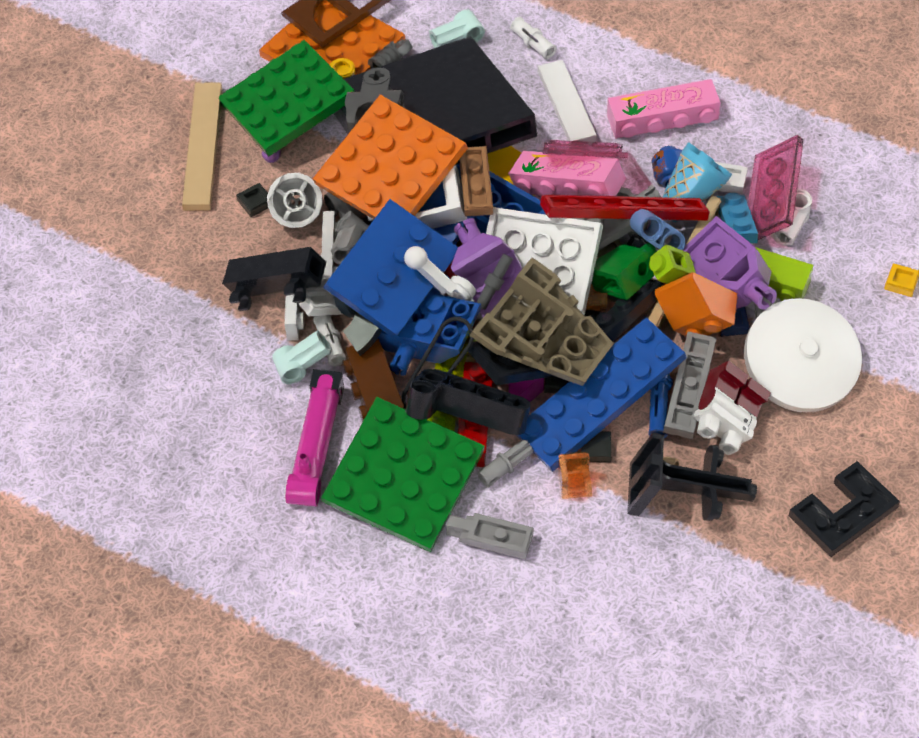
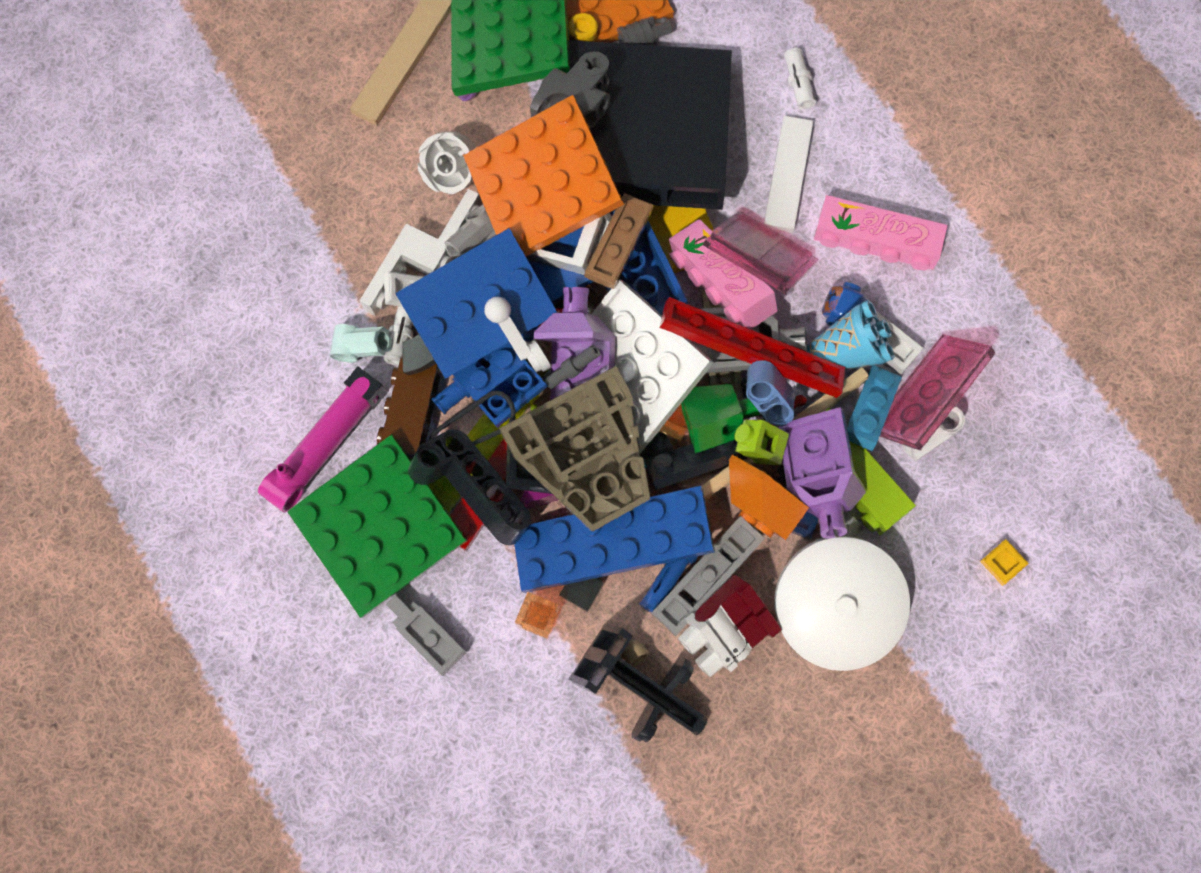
camera: 30 degrees right, 20 degrees up
(253, 199) = (418, 132): pearl dark grey tile -> none
(273, 273) = (379, 240): black brick -> none
(463, 26) = (735, 34): light aqua piece -> none
(504, 463) = (483, 562): light grey axle -> none
(867, 507) = (805, 808): black plate -> none

